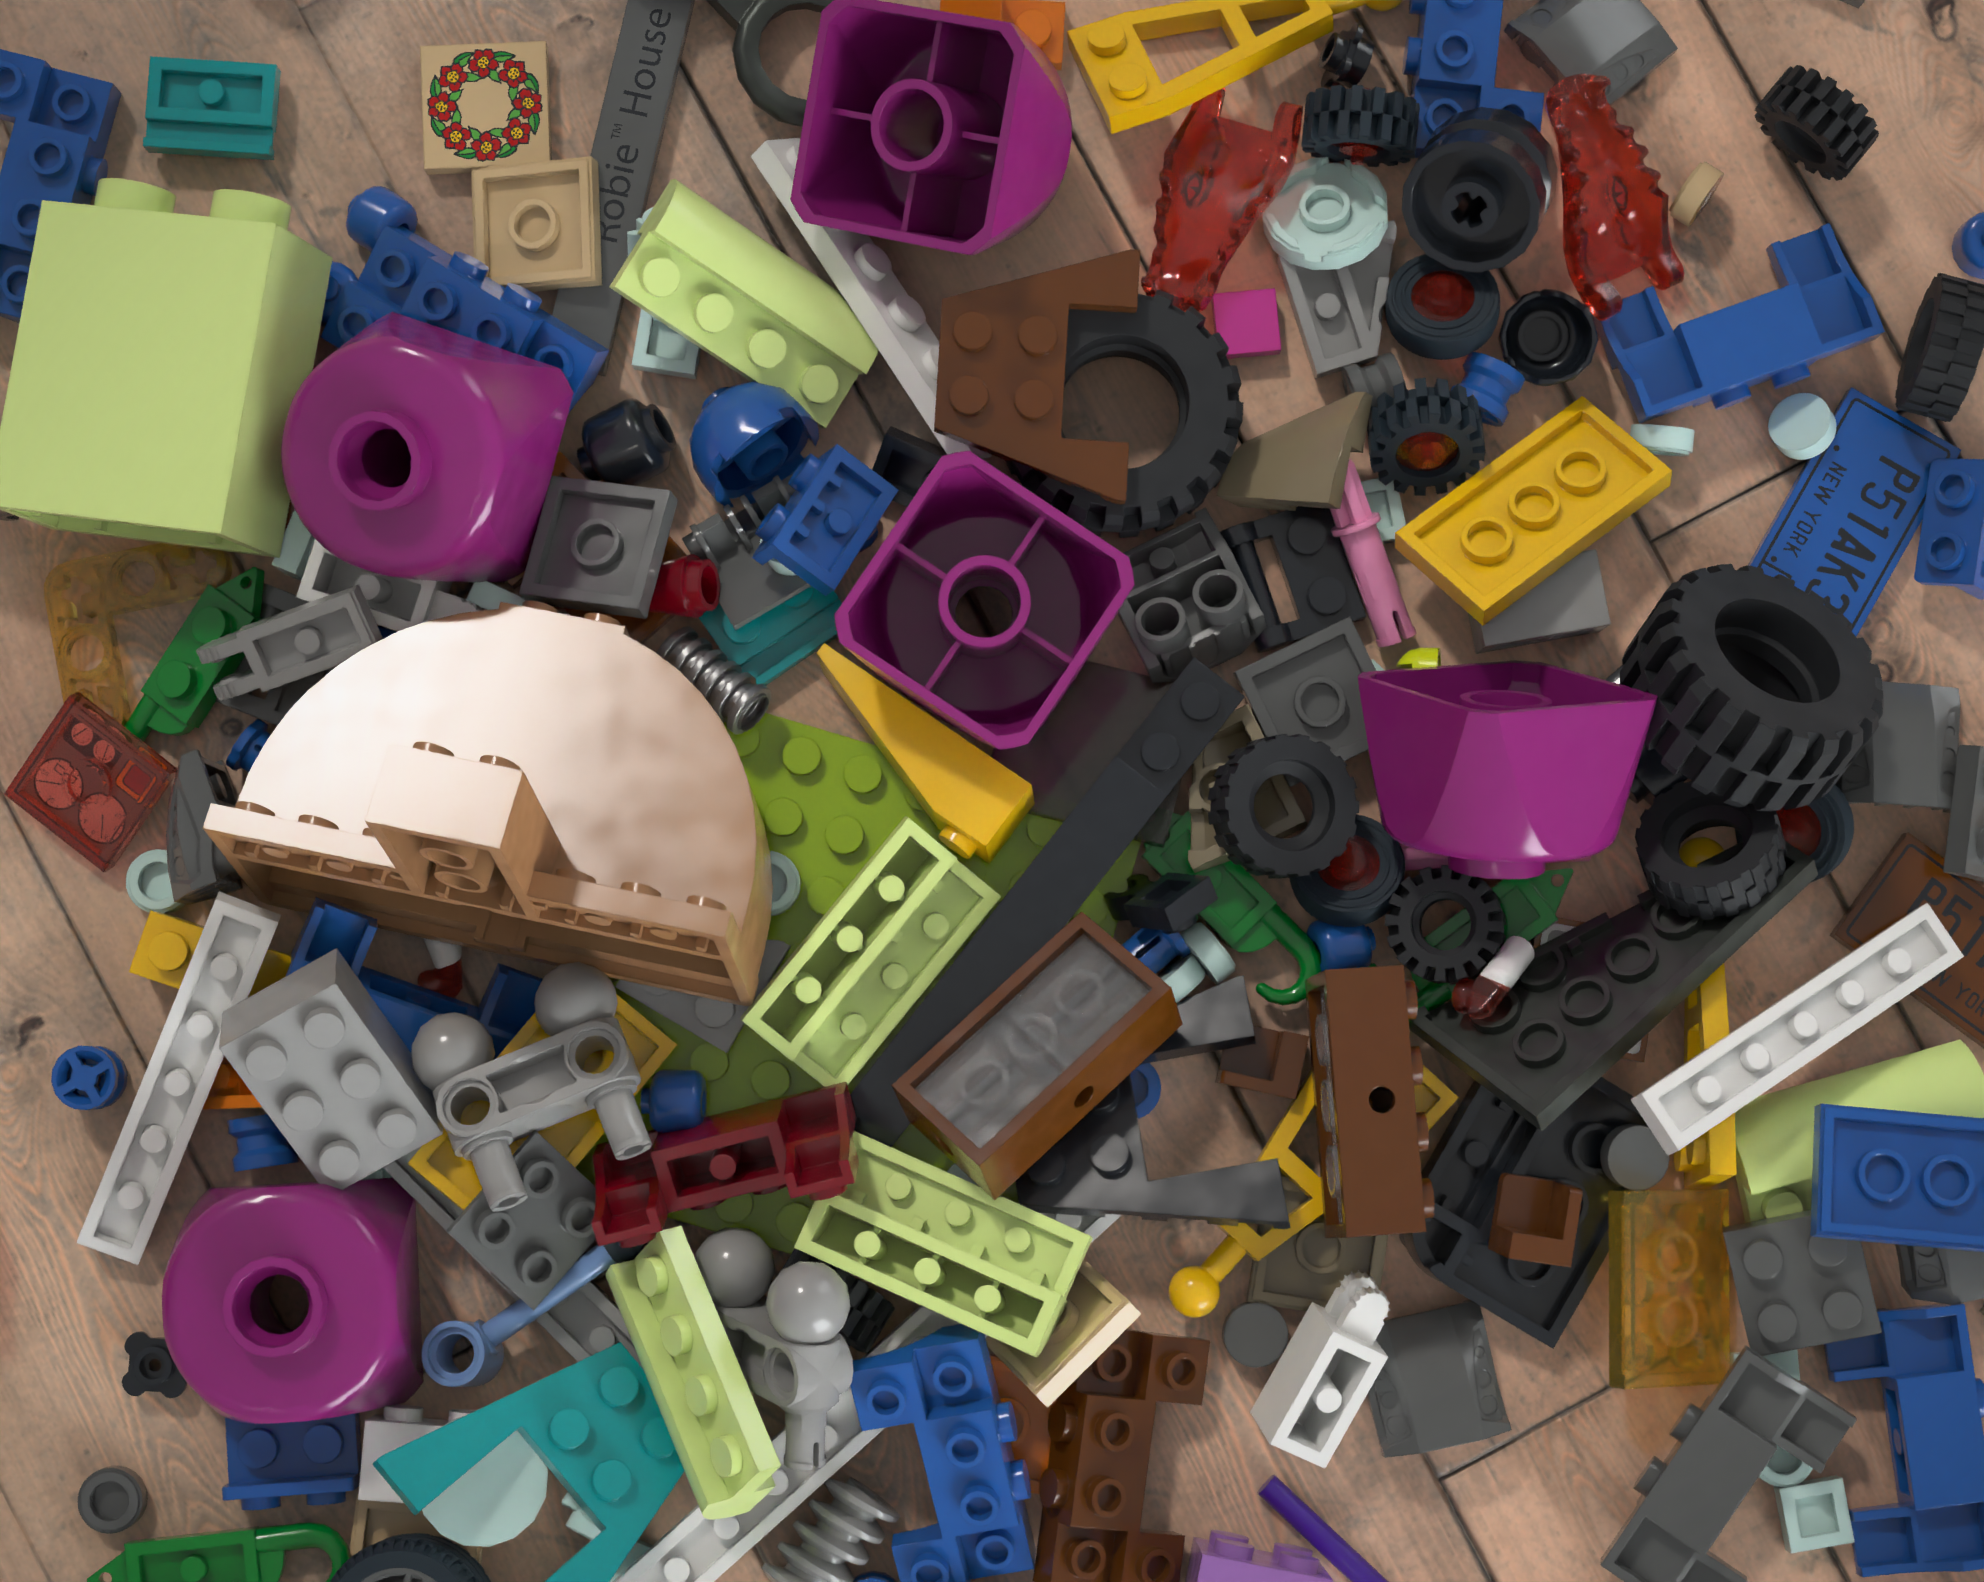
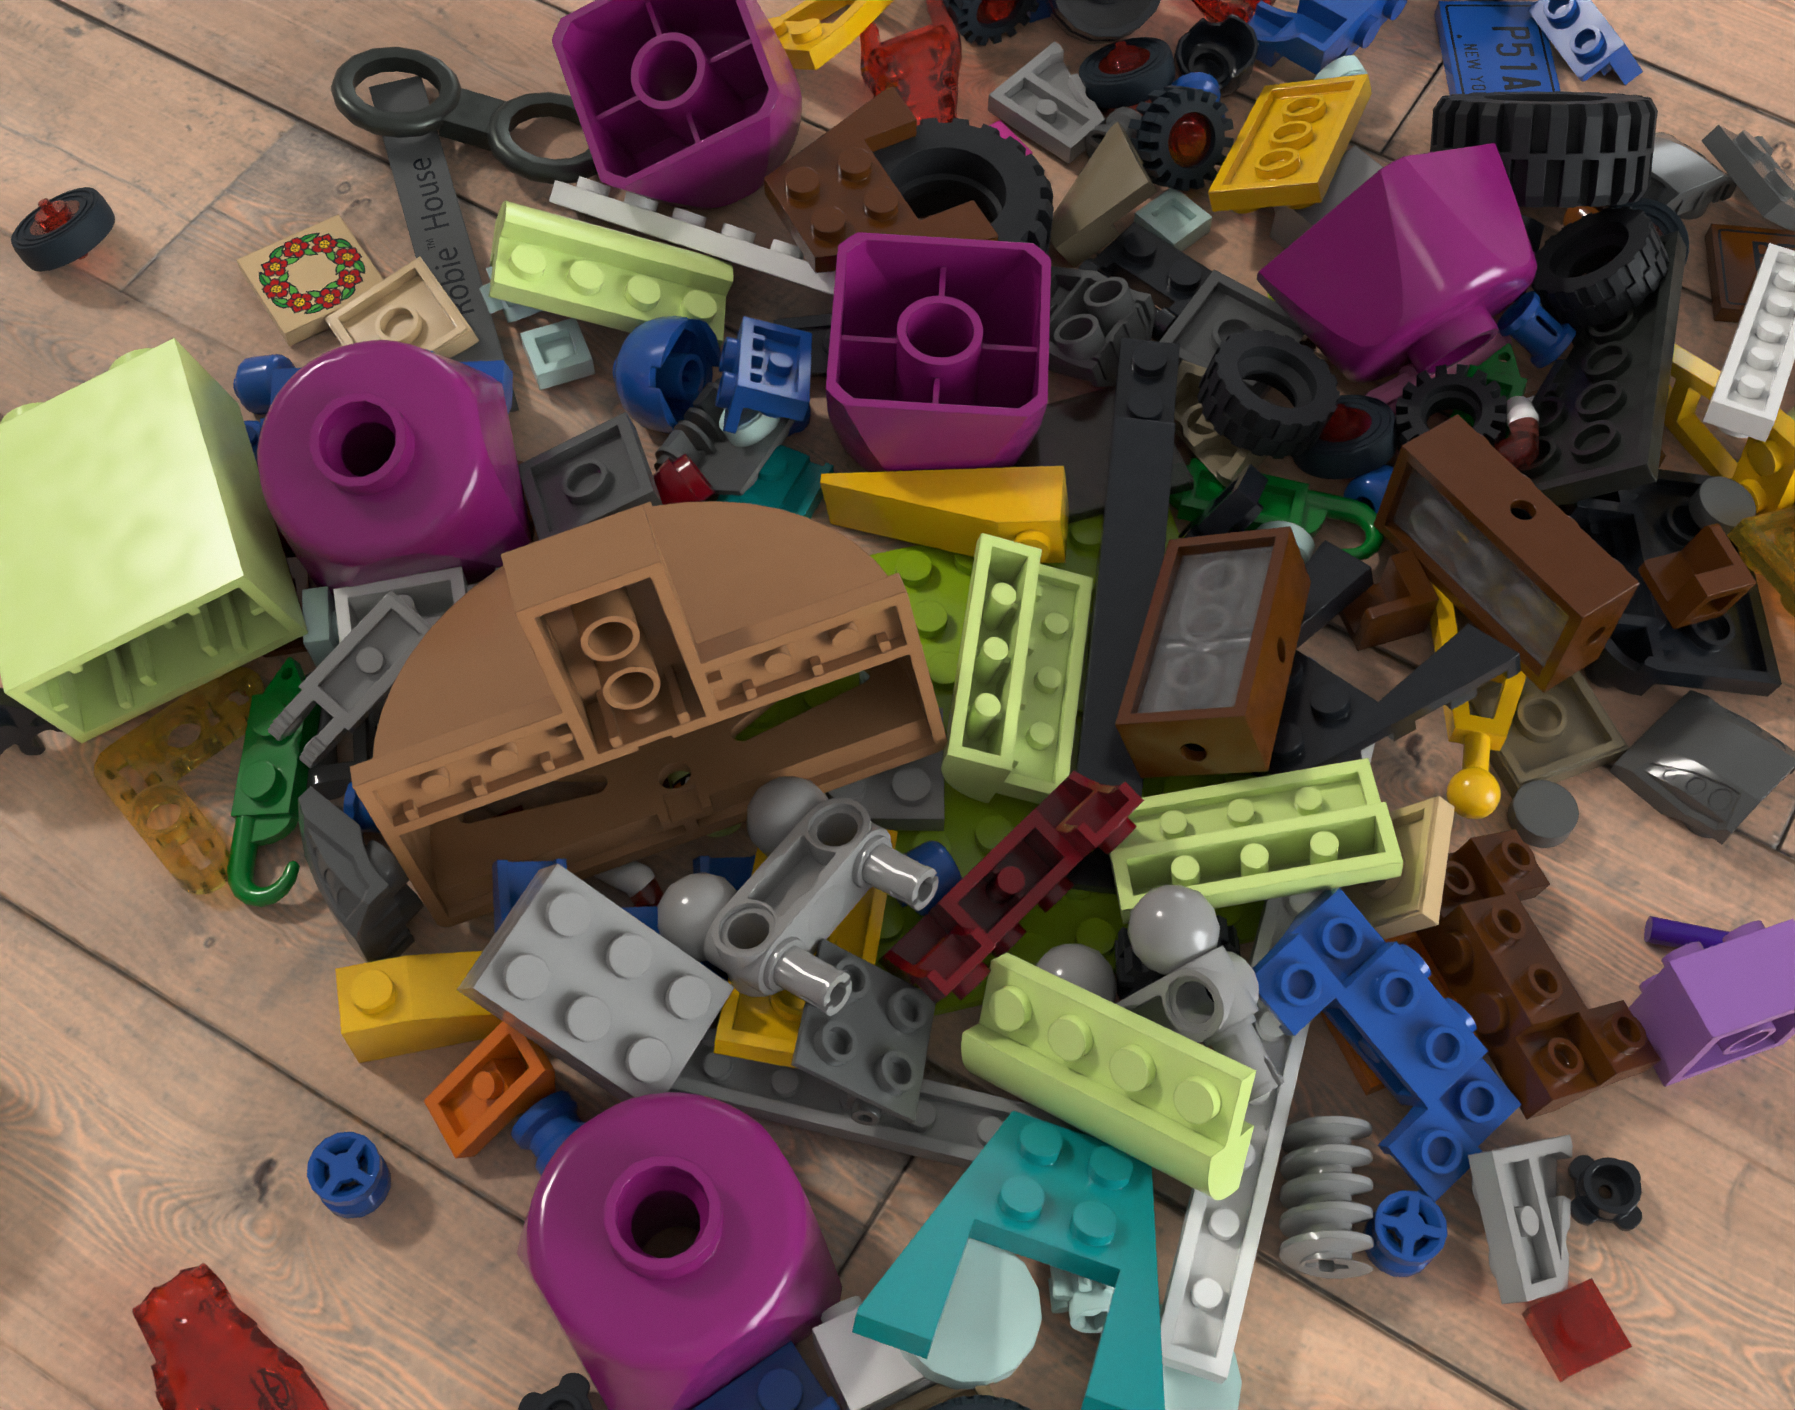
camera: 25 degrees left, 25 degrees down
(91, 781) = (220, 911): clear red tile -> none
(150, 883) = (317, 967): light aqua tile -> none
(177, 1079) = (442, 1112): white plate -> none
(211, 108) = (68, 360): teal plate -> none
(488, 1336) = (883, 1183): medium blue piece -> none
(626, 444) = (560, 418): black head -> none
(1325, 1372) = (1631, 790): white hinge -> none
(1327, 215) = (1006, 60): light aqua tile -> none
(1370, 563) = (1199, 237): bright pink axle -> none
(1624, 873) = (1536, 329): none -> blue bush
(1802, 426) = (1426, 34): light aqua tile -> none

